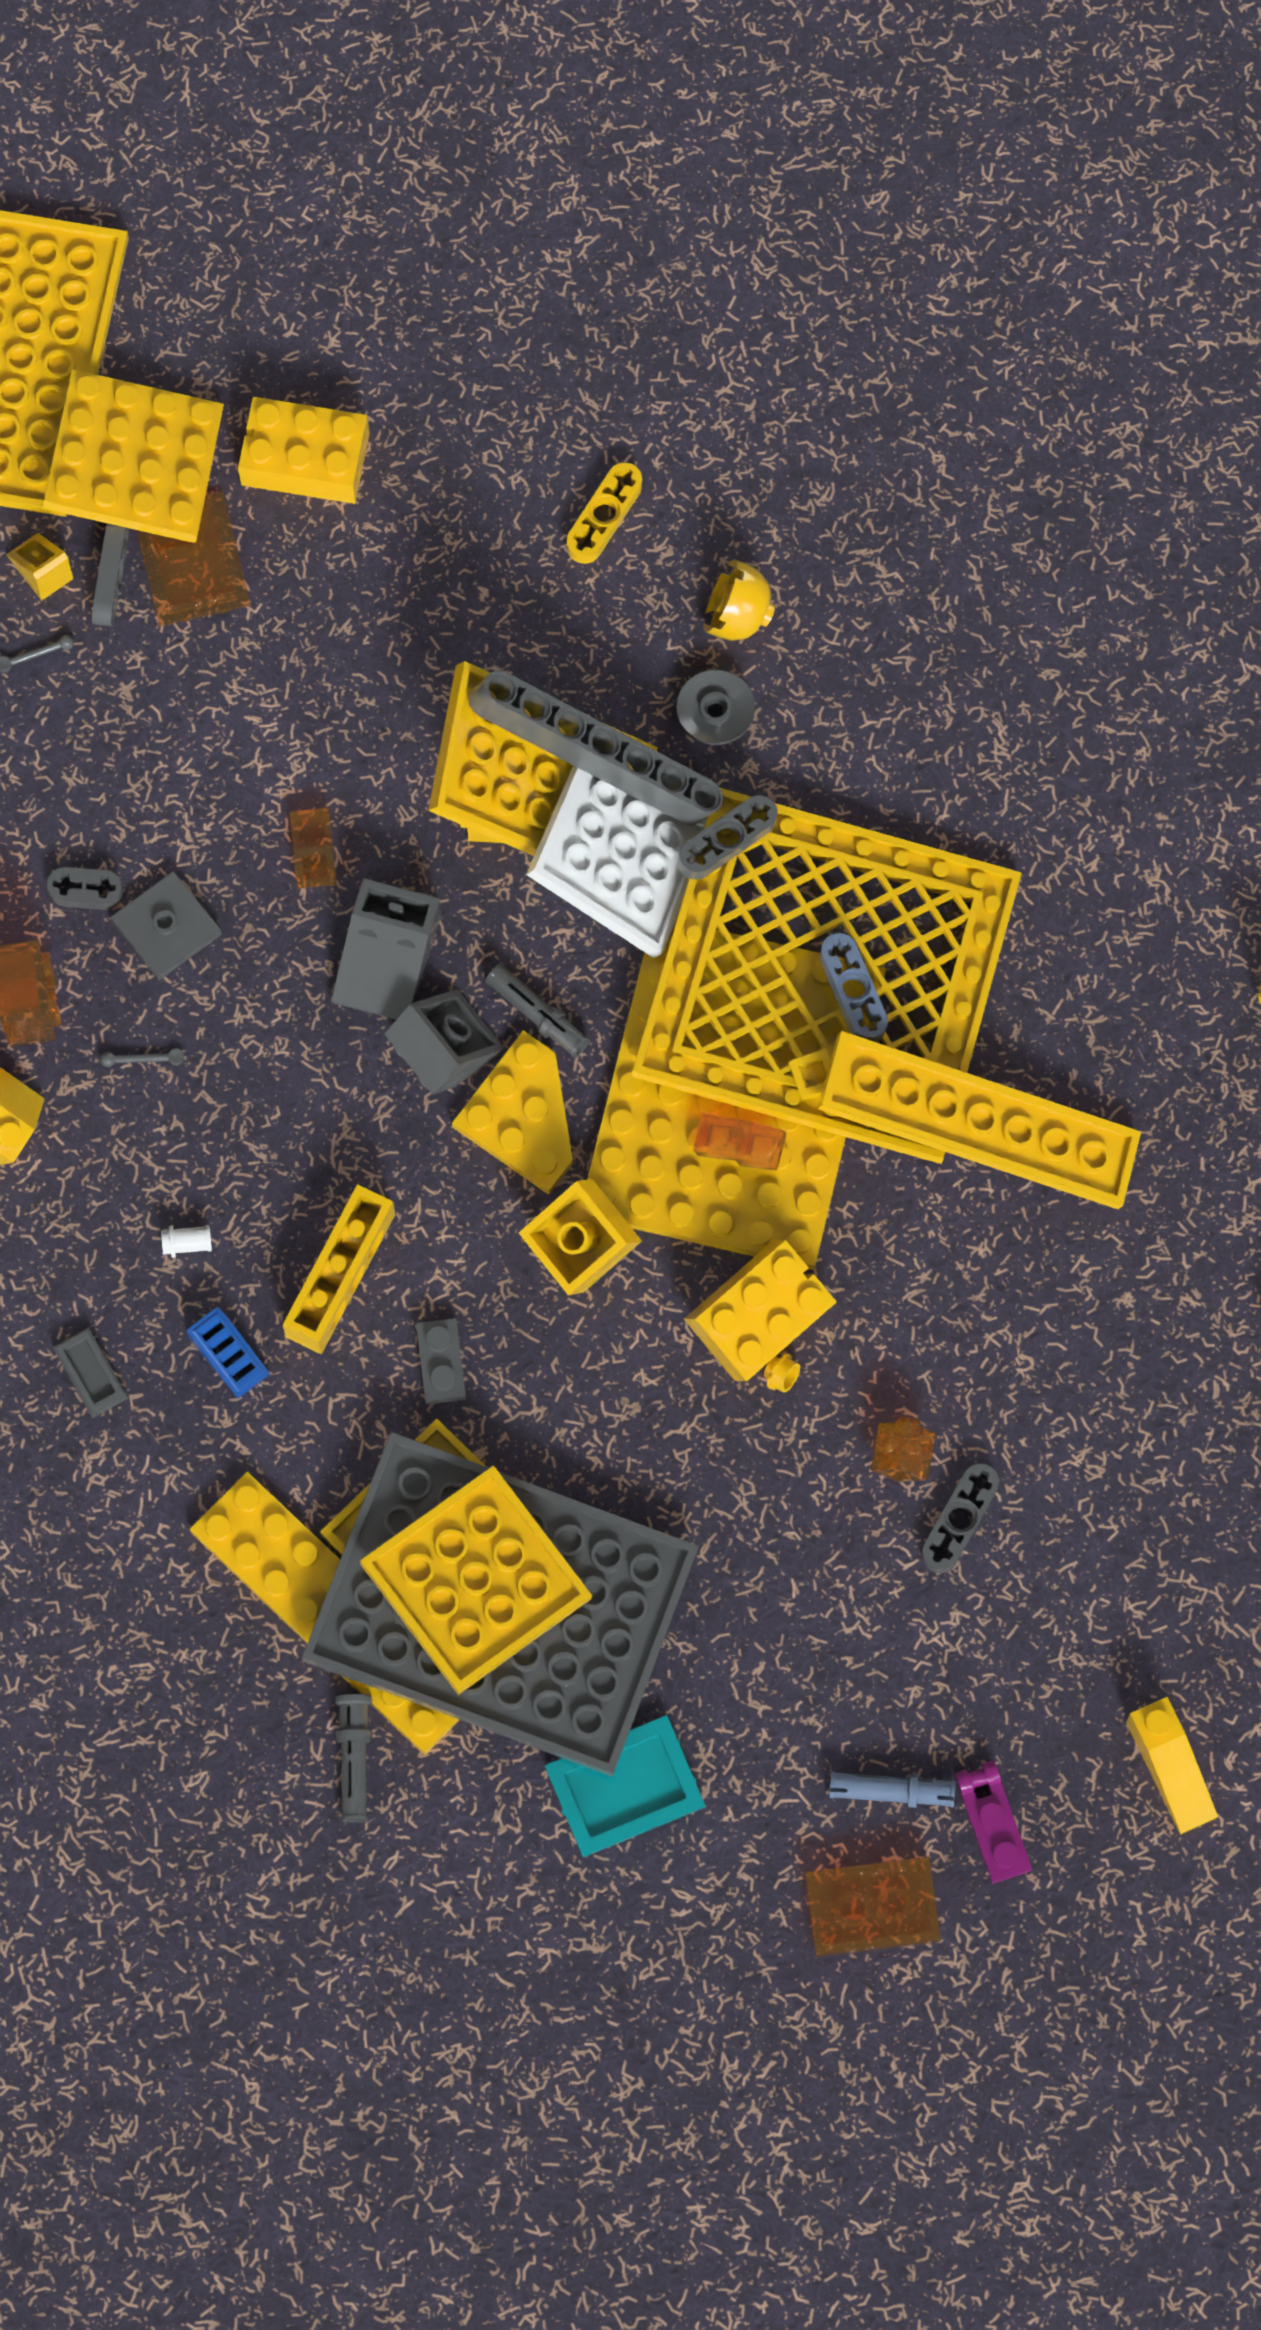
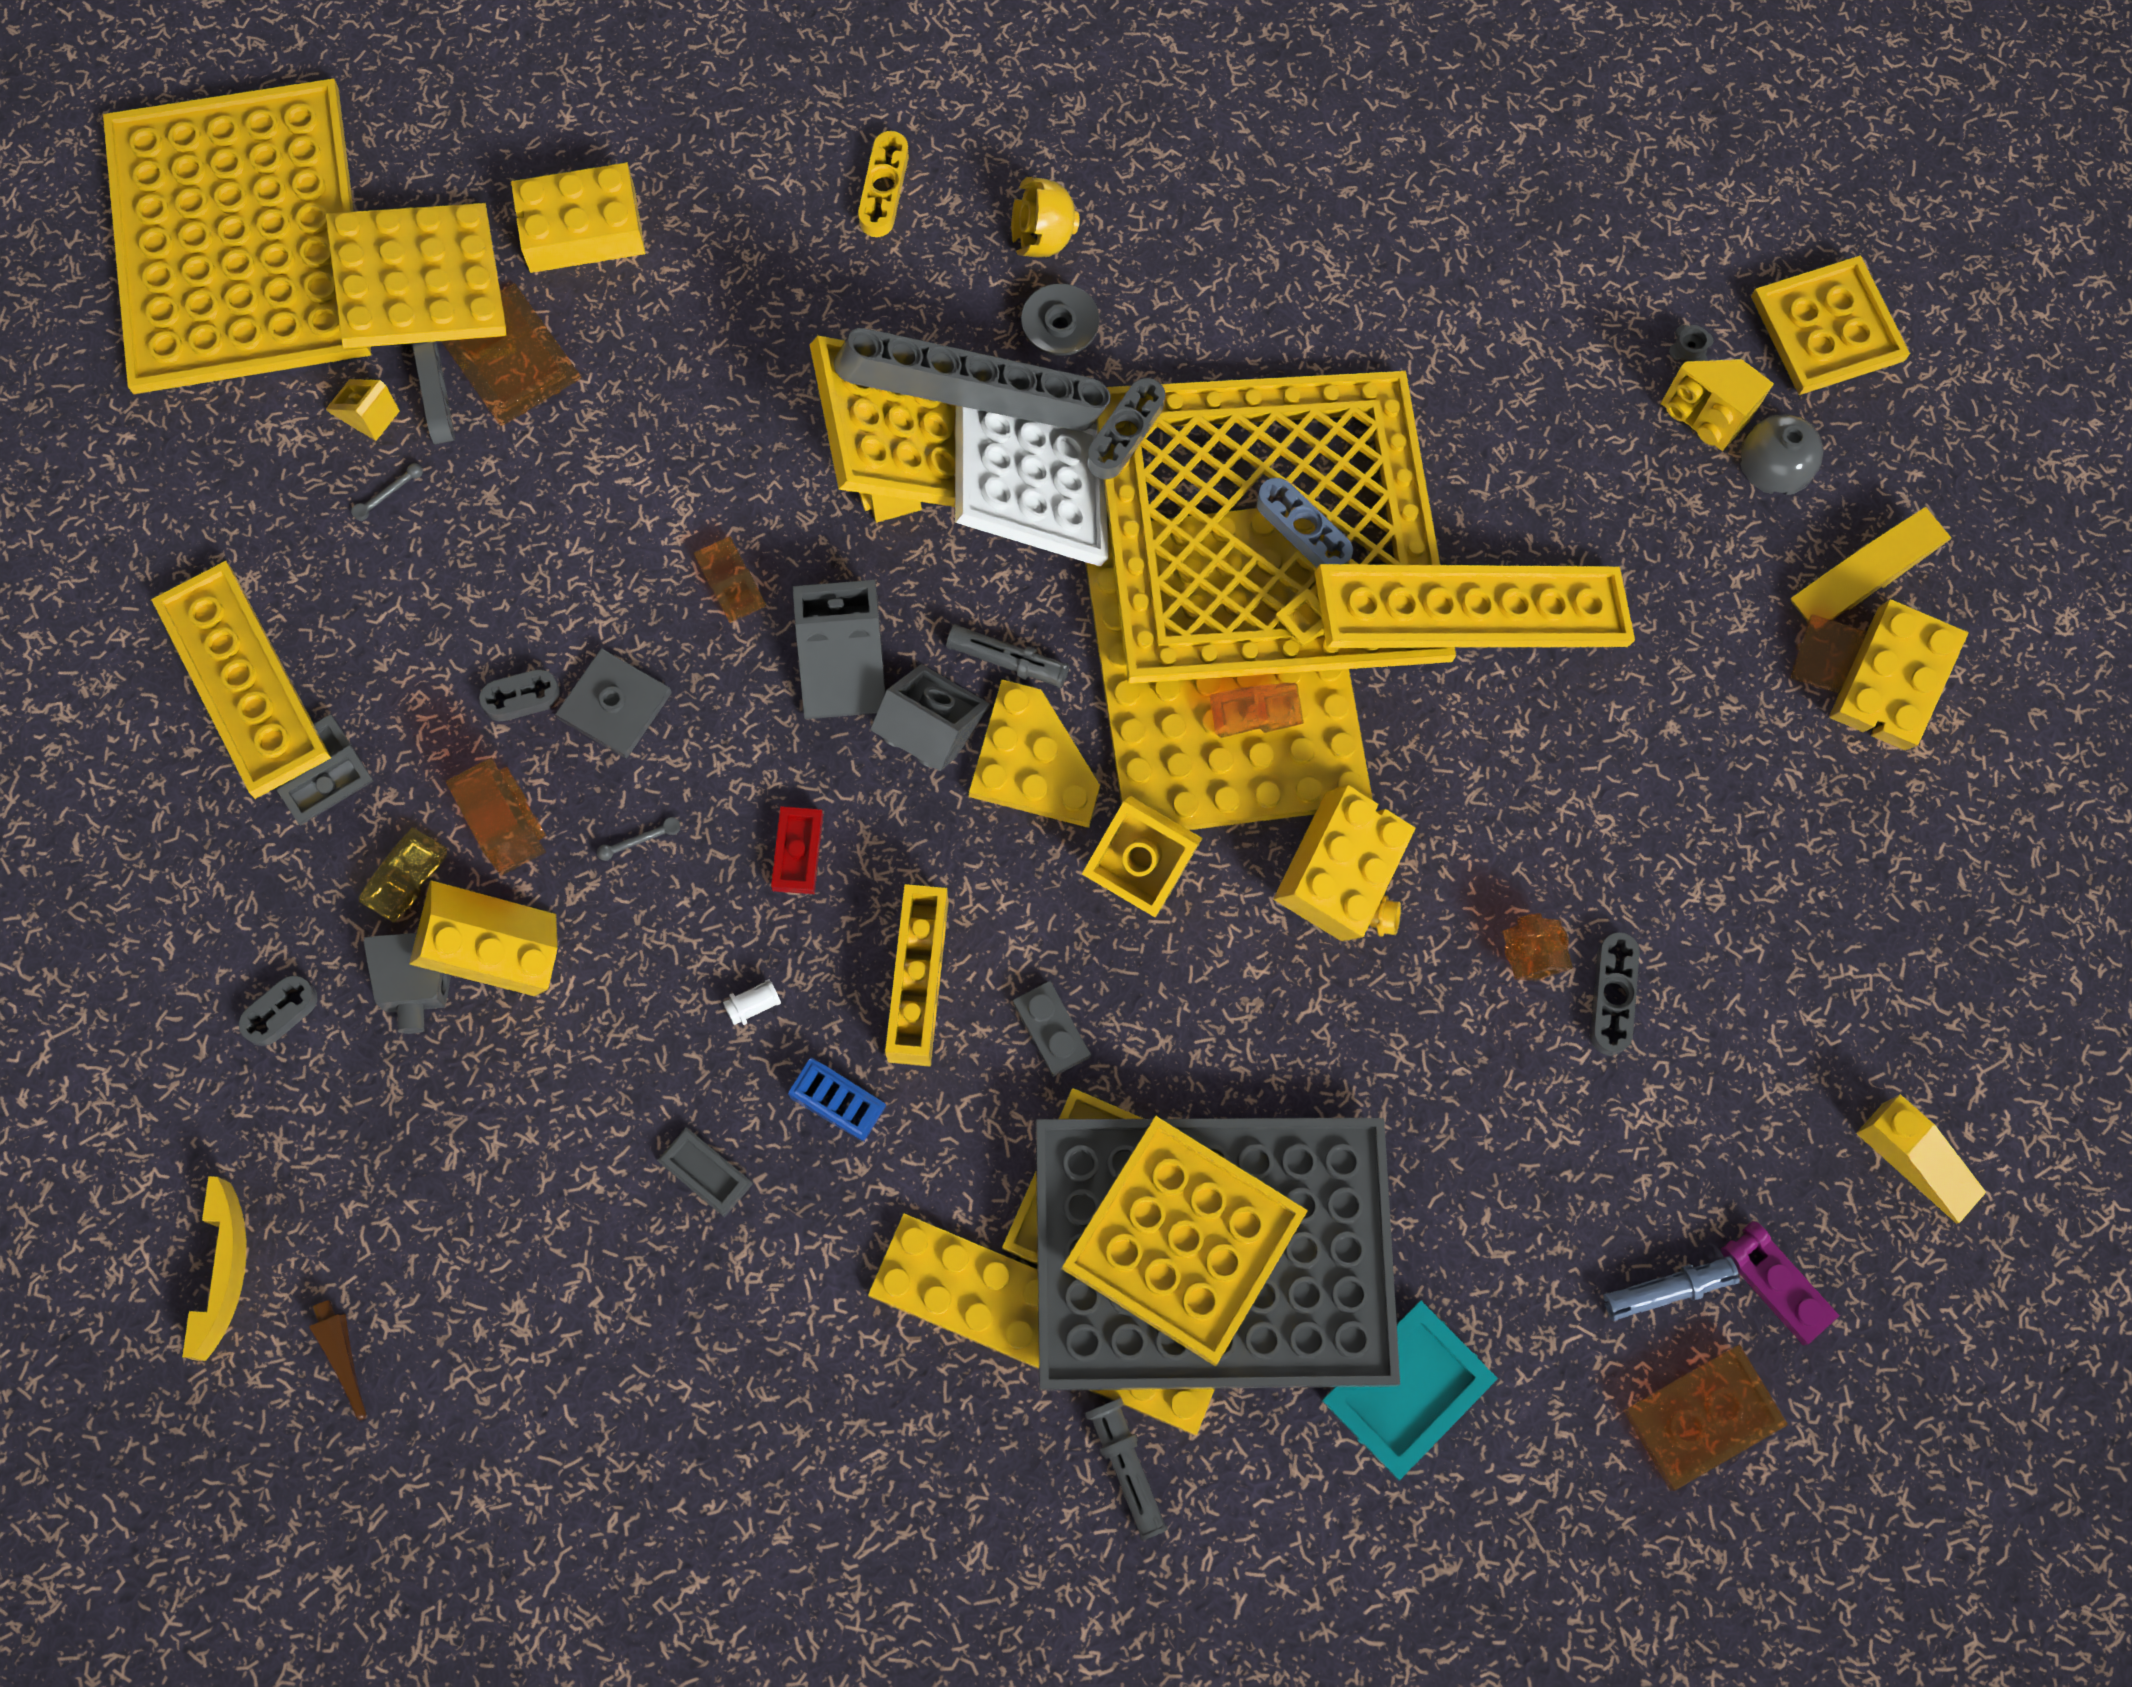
camera: 25 degrees left, 0 degrees up
(278, 1119) = (797, 850): none -> red plate

